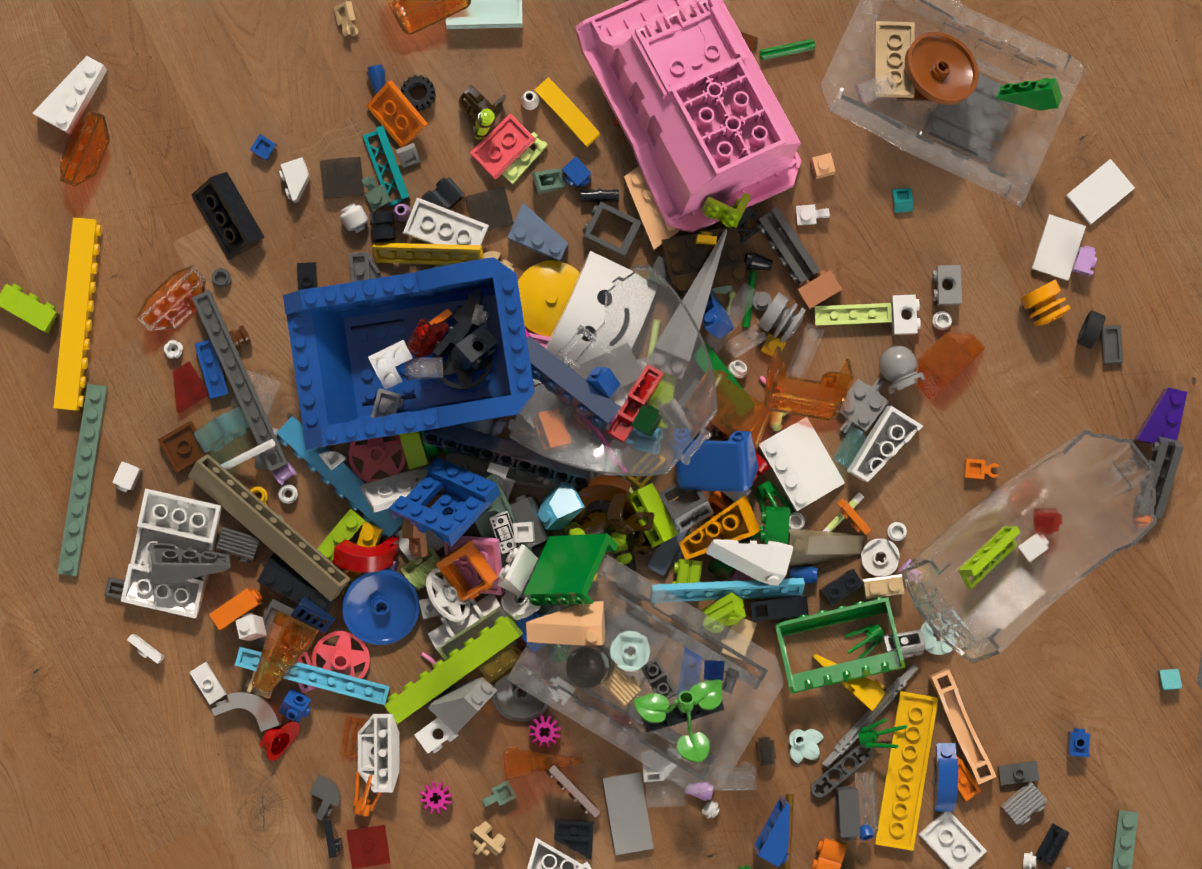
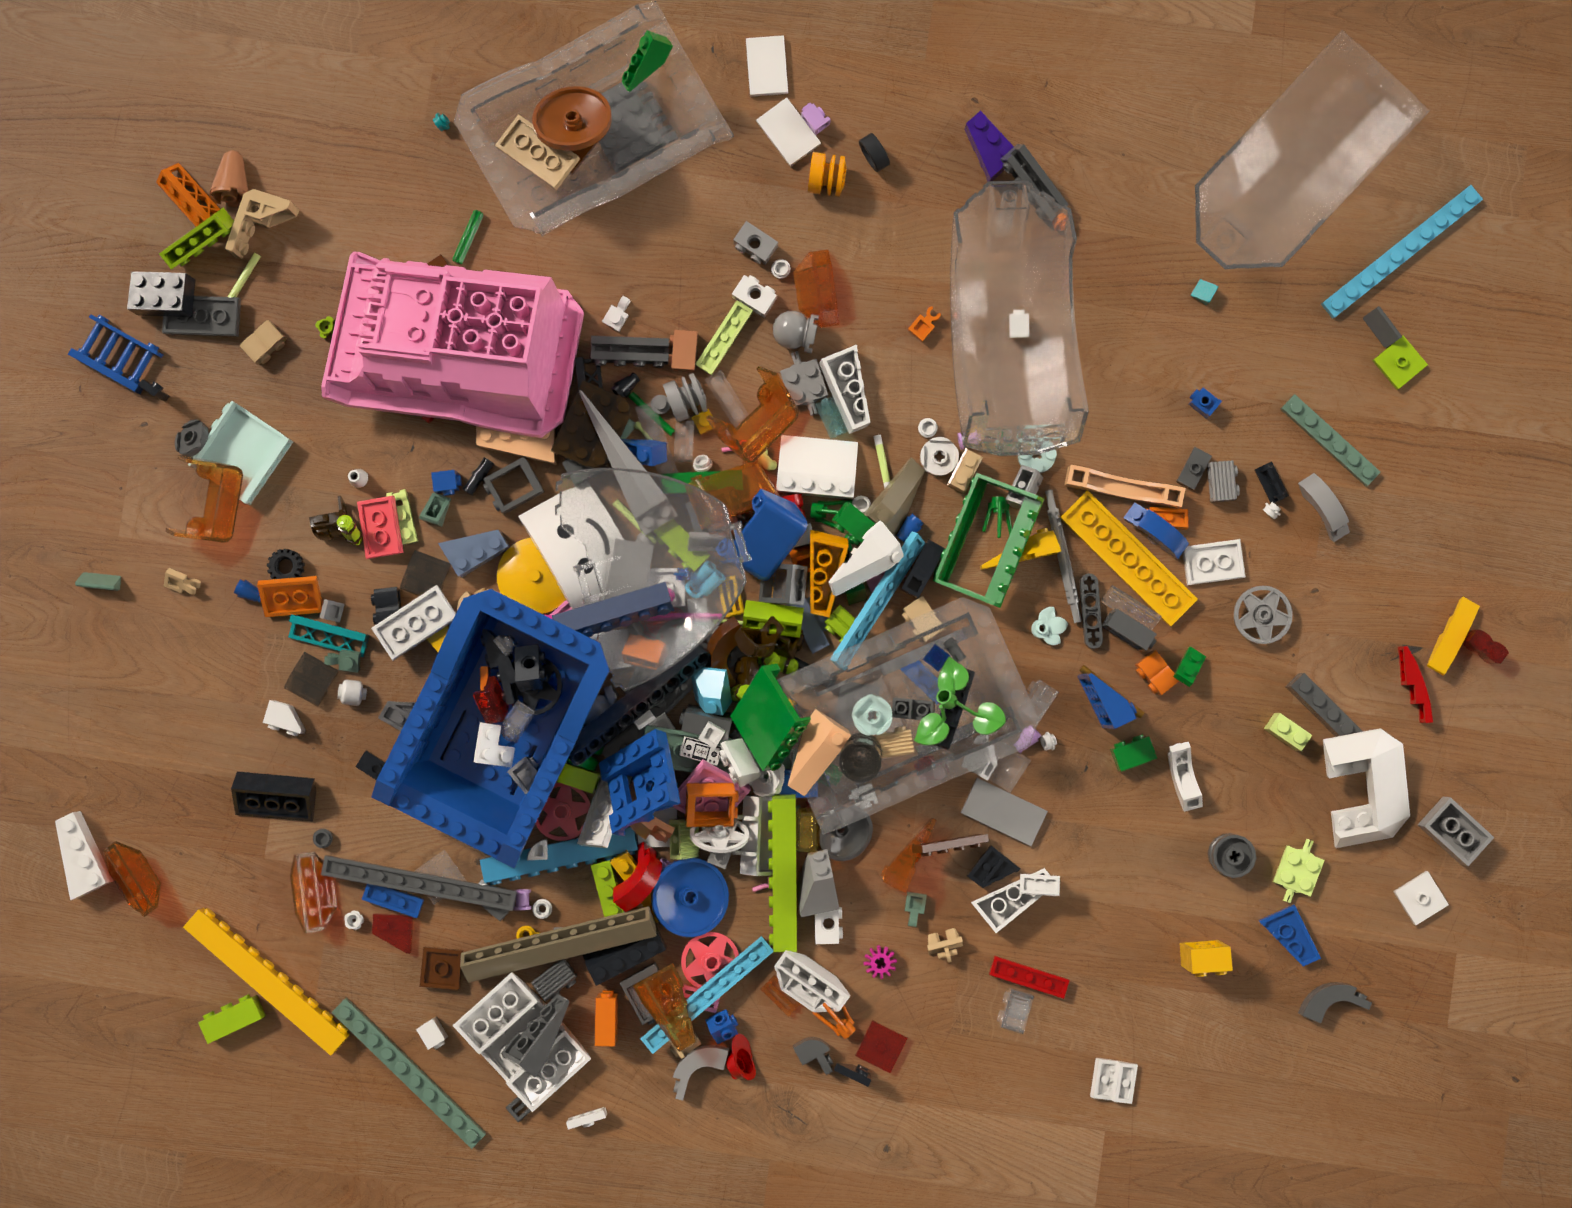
camera: 55 degrees left, 0 degrees up
(208, 683) = (652, 1086): white plate -> none
(222, 430) = (449, 926): clear light blue brick -> none
(240, 336) = (383, 857): reddish brown wheel -> none
(249, 454) = (485, 918): white bar -> none
(250, 627) = (630, 1018): white brick -> none
(263, 147) = (238, 726): blue plate -> none
(312, 608) = (649, 956): dark blue slope -> none
(382, 226) = (373, 672): black wheel -> none
(402, 217) = (379, 651): lavender cone -> none
(426, 253) = (421, 655): yellow plate -> none
(544, 738) = (883, 829): dark pink gear -> none
(567, 112) = (390, 453): yellow slope -> none
(603, 380) = (633, 579): blue brick -> none
(639, 395) = (671, 567): red slope -> none
(647, 420) = (691, 567): dark green brick -> none
(705, 238) = (575, 413): yellow plate -> none
(726, 610) = (894, 612): lime brick -> none
(728, 215) = (564, 382): lime bracket -> none
(765, 750) = (1032, 662): clear smoke brick -> none
(822, 166) = (584, 275): light nougat brick -> none
(841, 587) = (941, 505): black brick -> none
(857, 522) = (883, 455): orange plate -> none
(866, 832) = (1156, 626): blue hinge -> none
(868, 736) = (1079, 569): green plant -> none
(876, 88) = (550, 182): clear plate -> none
(902, 200) = (659, 231): teal slope -> none
(985, 556) = (1000, 369): lime fence -> none
(1046, 520) = (1005, 298): clear red brick -> none
(1111, 344) = (898, 145): dark grey tile -> none

